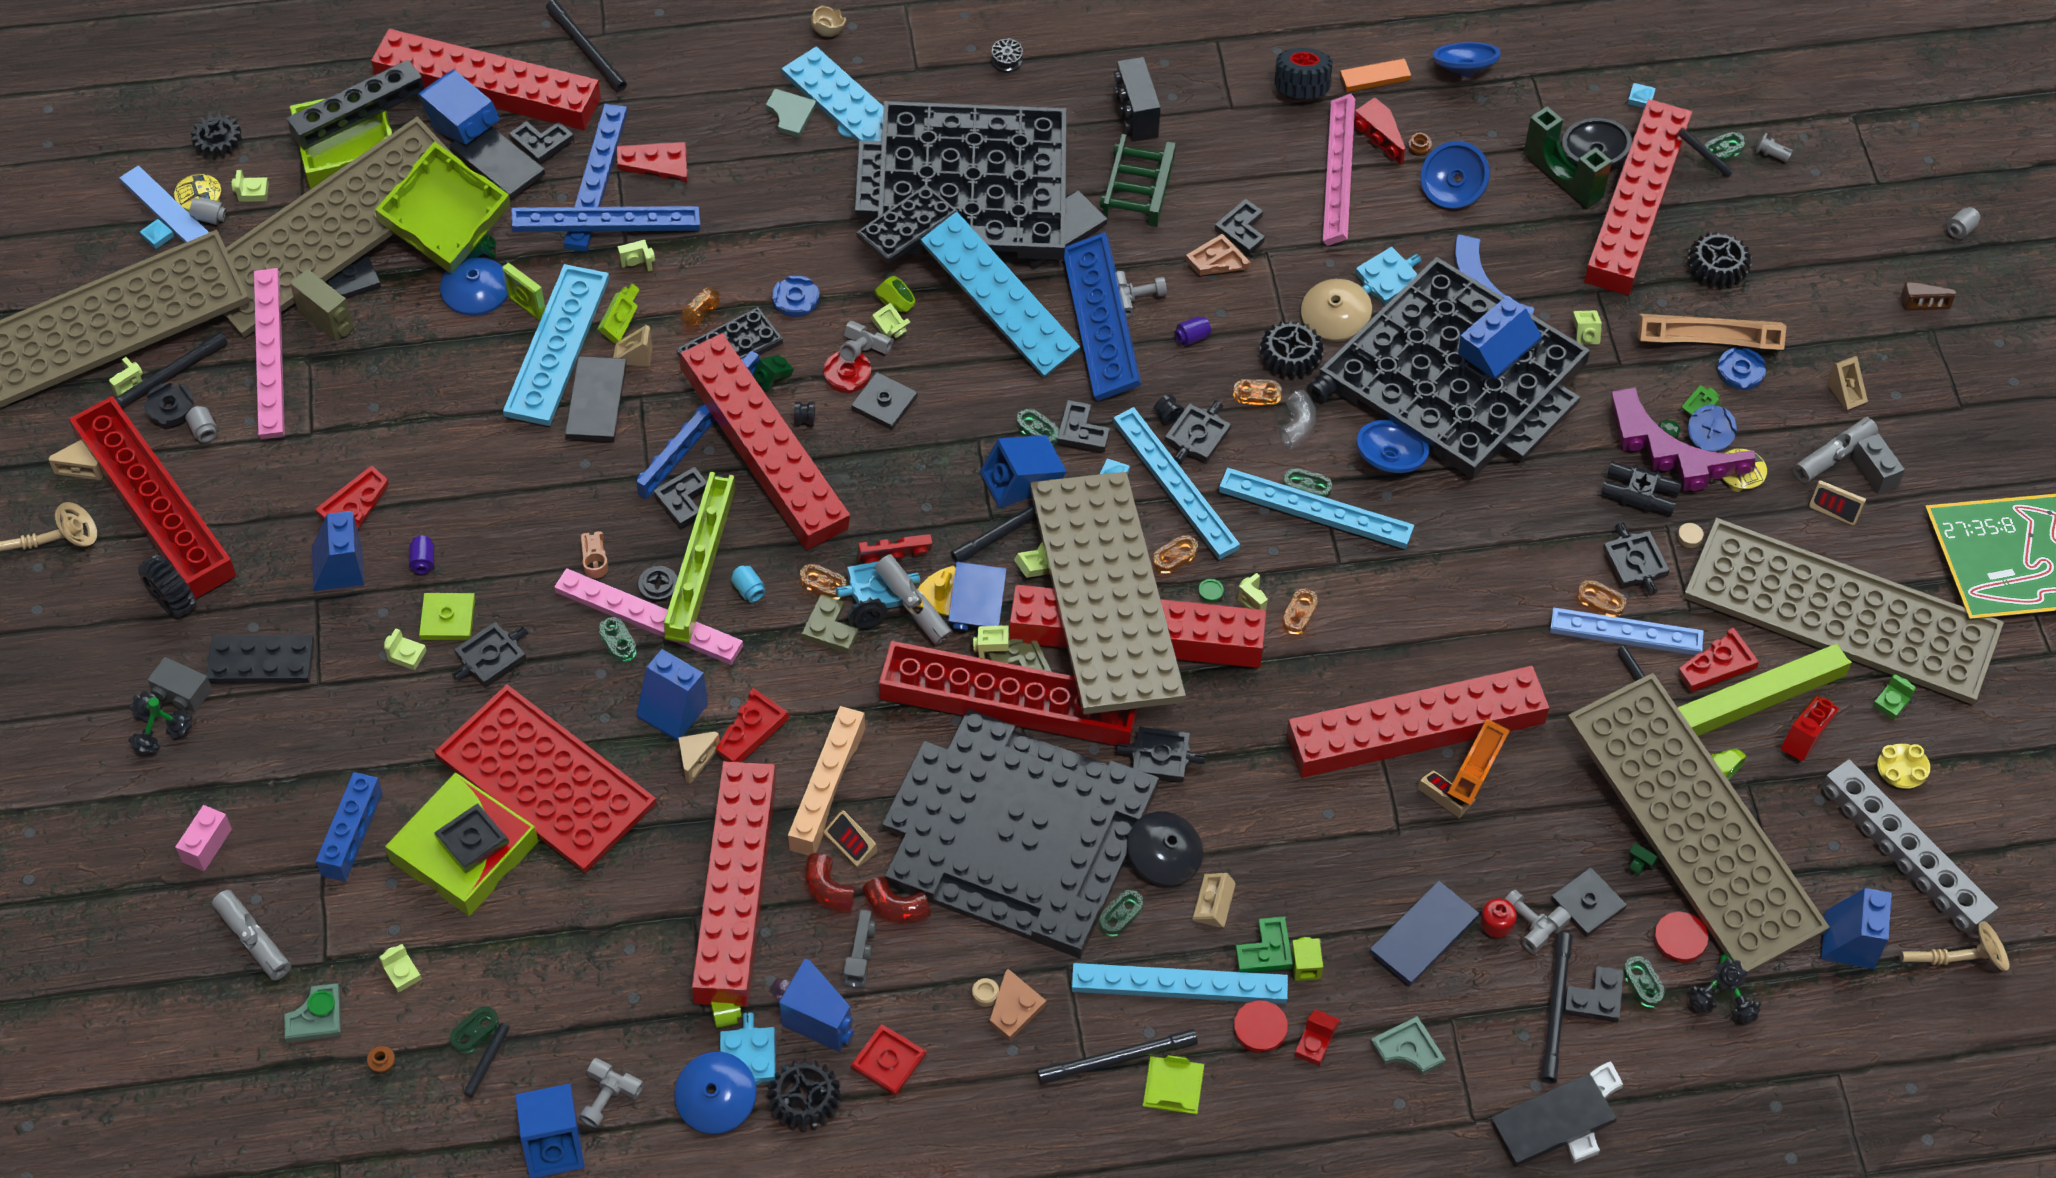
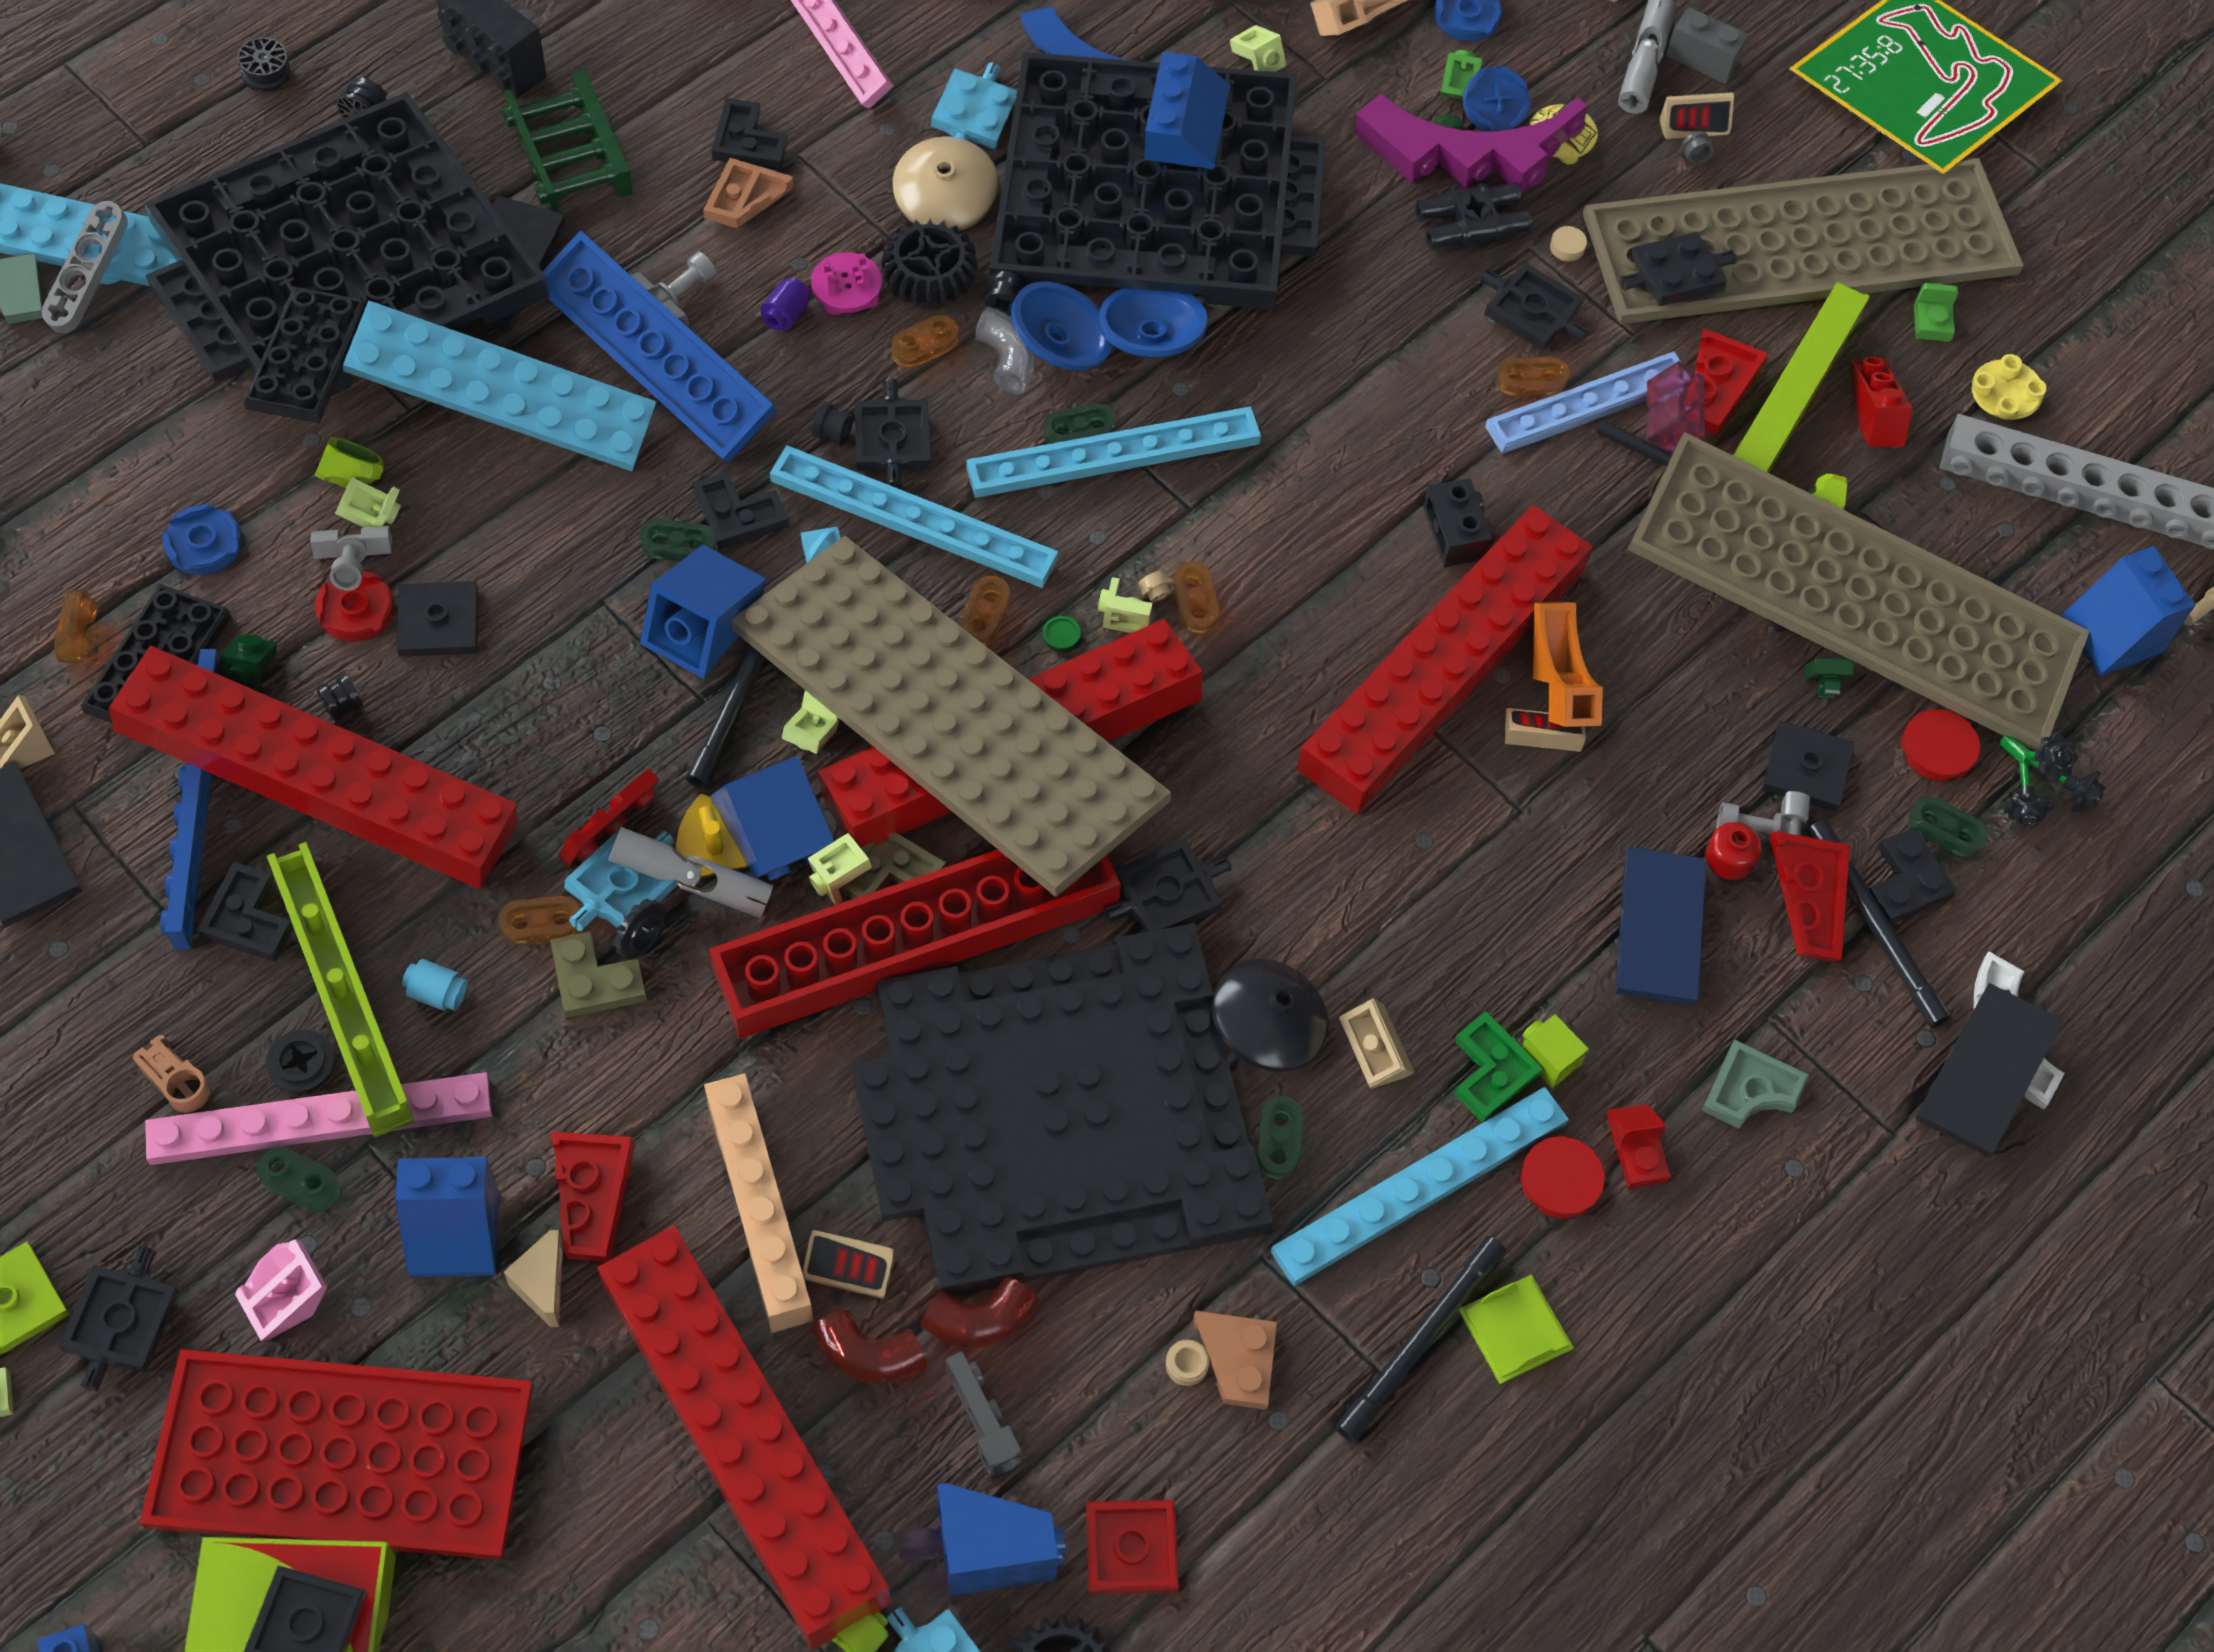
camera: 40 degrees left, 5 degrees up
(571, 687) = (281, 1290): none -> bright pink slope
(832, 118) = (77, 264): none -> light grey beam
(1043, 98) = (360, 95): none -> black wheel
(1239, 329) = (831, 286): none -> dark pink plate
(1281, 593) = (1155, 586): none -> tan plate
(1334, 421) = (1060, 326): none -> blue dish
(1486, 652) = (1458, 522): none -> black brick
(1527, 966) = (1814, 892): none -> red wing
(1674, 654) = (1675, 406): none -> clear pink piece
(1741, 583) = (1678, 269): none -> black plate
(1820, 521) = (1697, 148): none -> dark grey plate

